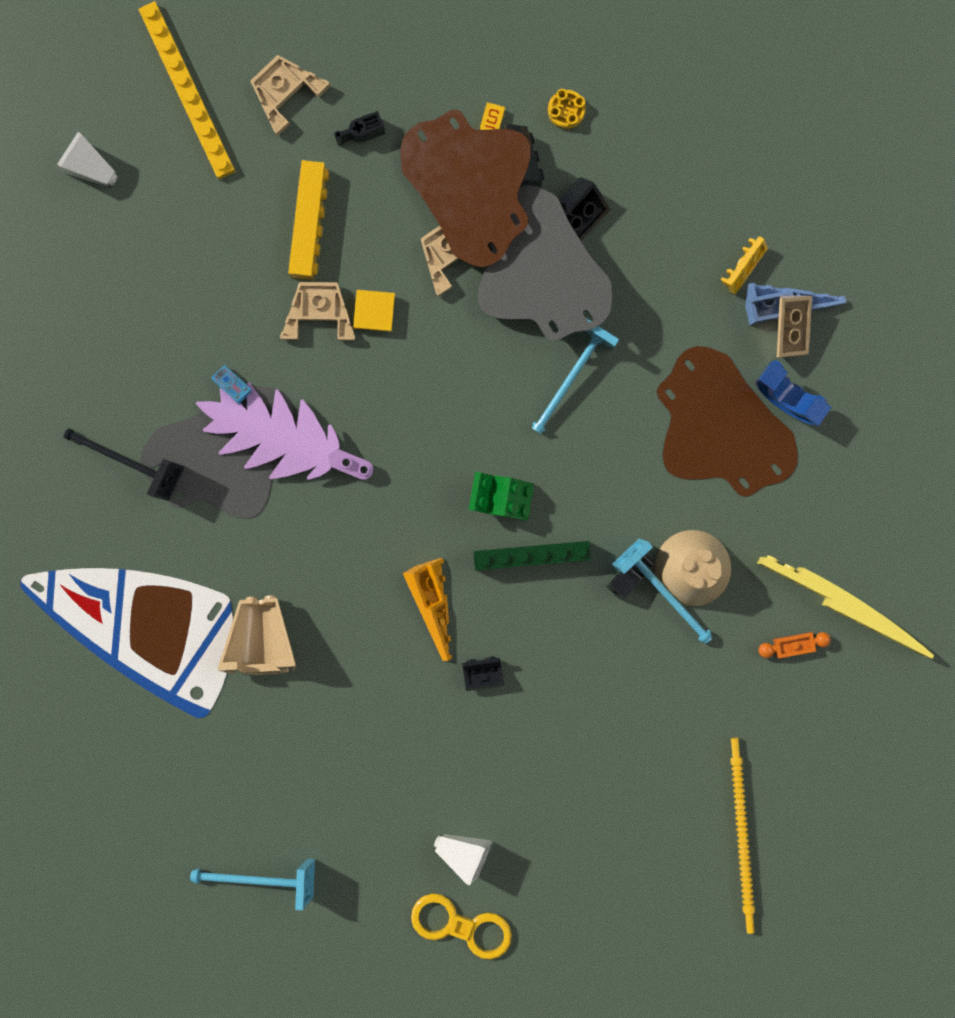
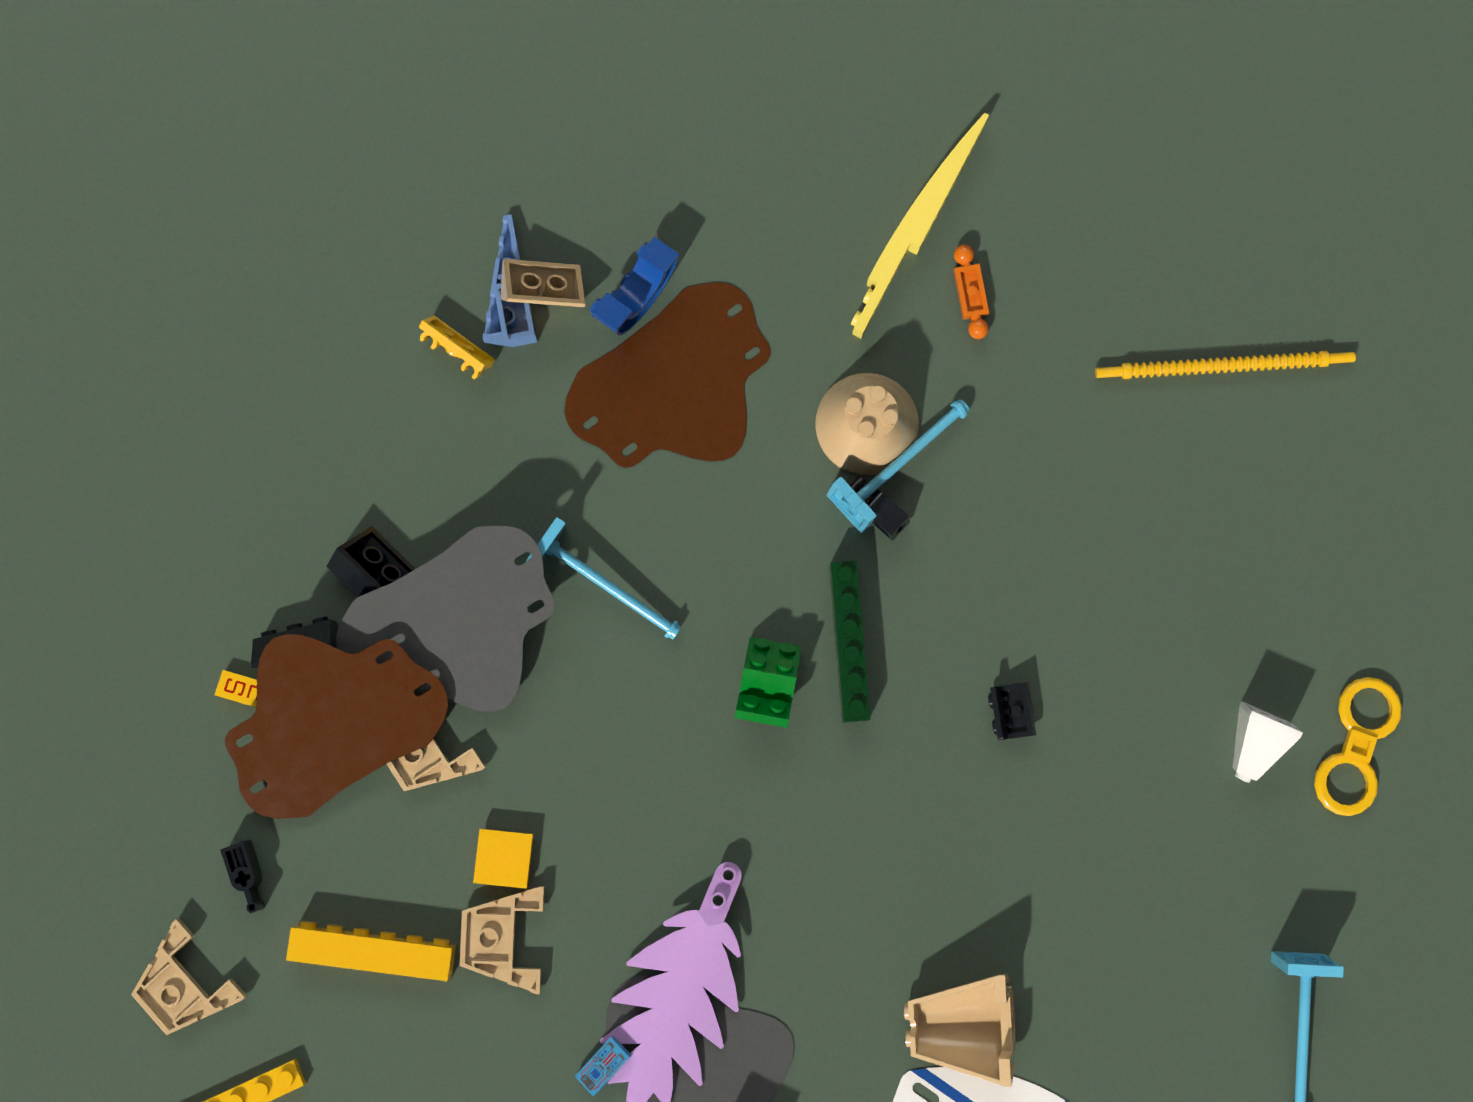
camera: 90 degrees left, 5 degrees down
(428, 592) = (895, 787): light orange wedge -> none
(566, 109) = (229, 584): yellow tile -> none

